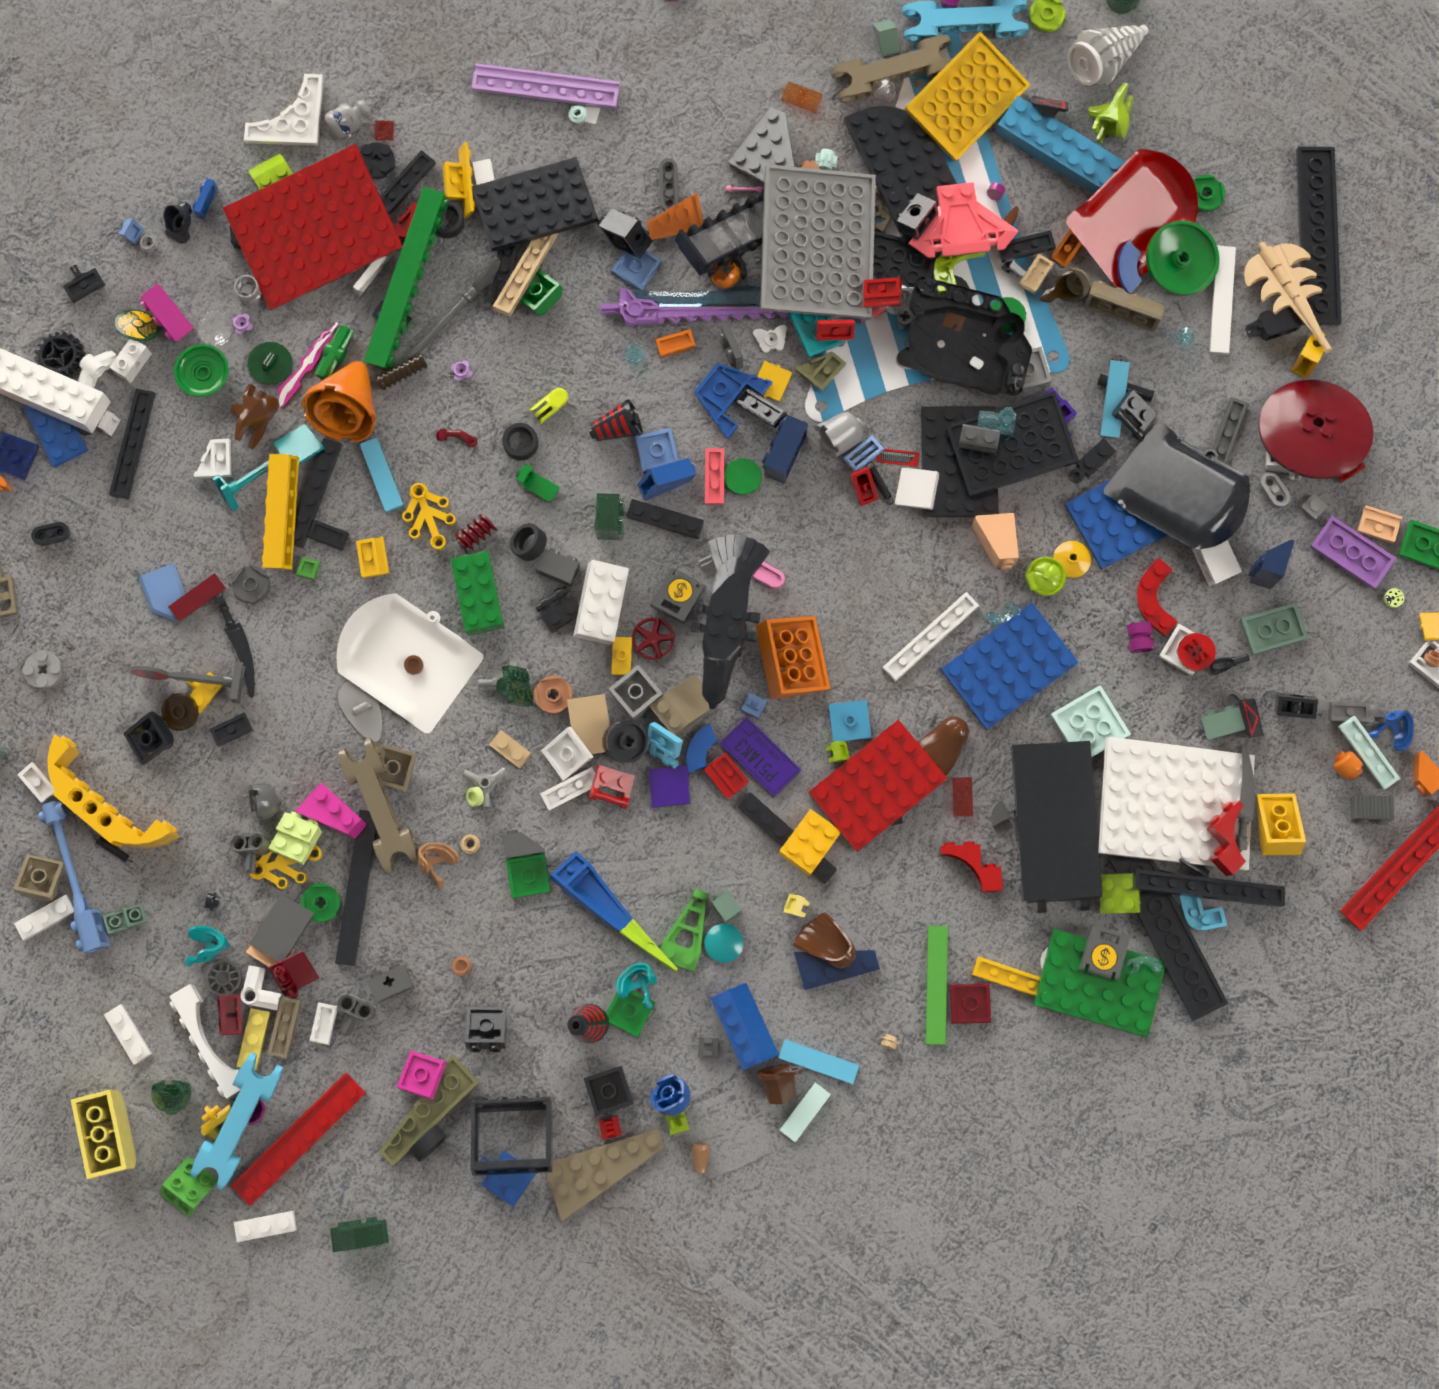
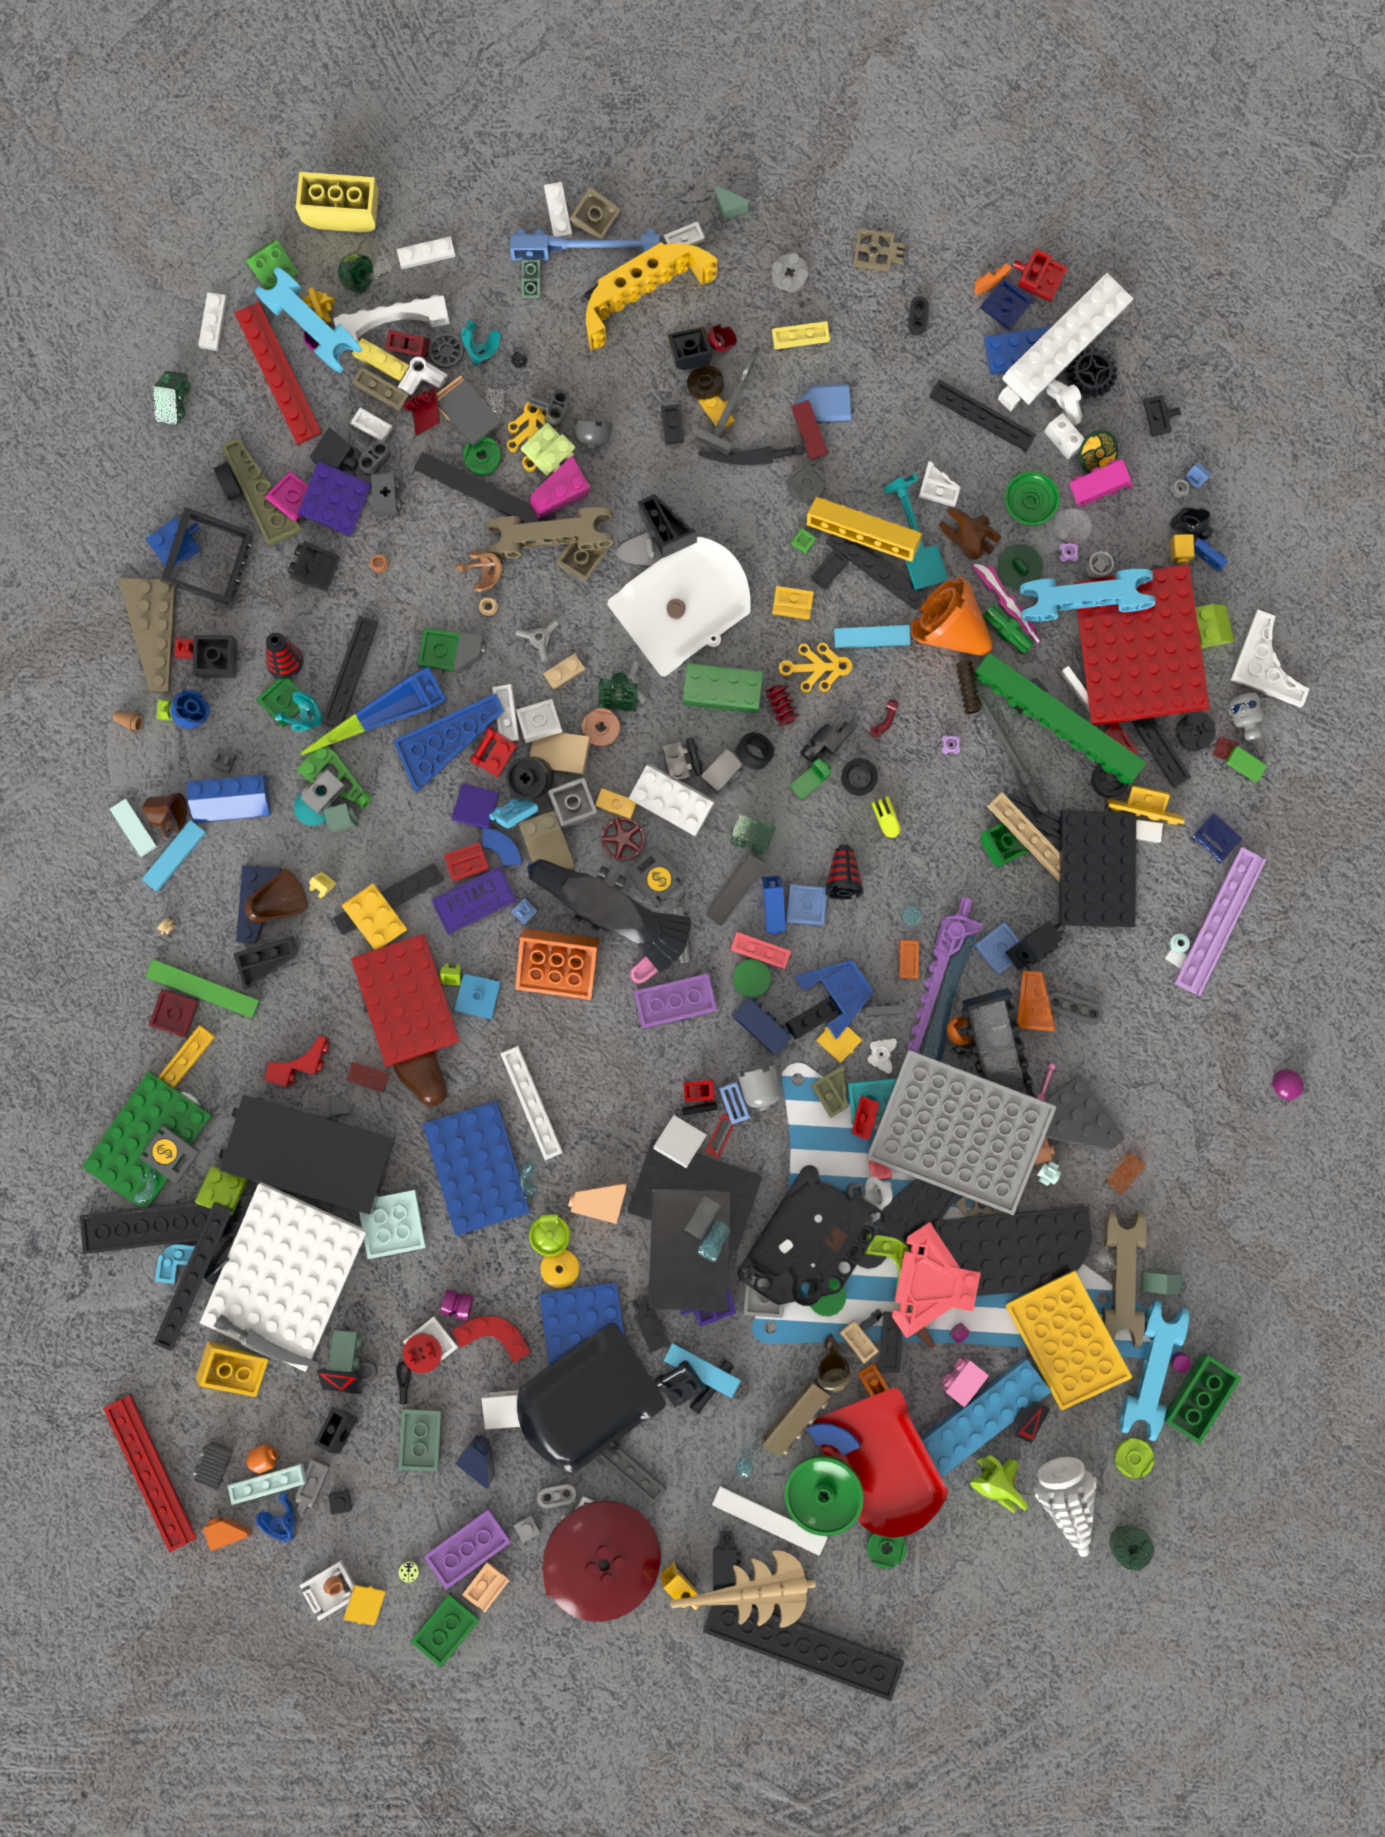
camera: 105 degrees right, 5 degrees up
(104, 638) = (800, 335): none -> light yellow plate
(130, 710) = (721, 338): none -> dark red hair
(207, 223) = (1182, 548): none -> yellow brick
(292, 319) = (1085, 595): none -> medium azure piece
(337, 699) = (665, 527): none -> black wedge
(364, 1049) = (334, 452): none -> black torso
(392, 107) = (1245, 763): none -> bright green tile
(411, 1032) = (334, 498): none -> dark purple plate
(465, 109) = (1220, 833): none -> clear blue plate
(475, 796) = (529, 624): yellowish green tile -> none
(495, 481) = (827, 740): none -> black plate
(579, 954) = (350, 671): none -> black plate
(623, 844) = (438, 743): none -> blue wing
(699, 925) = (334, 790): none -> light grey brick
(789, 537) = (675, 1001): none -> medium lavender plate
(882, 292) = (885, 1176): red plate -> none
(887, 932) = (264, 959): none -> black wedge
(917, 216) = (943, 1236): brick -> none
(1036, 171) = (963, 1380): none -> bright pink brick
(1222, 828) = (242, 1311): red arch -> none
(1358, 682) = (340, 1502): none -> black plate

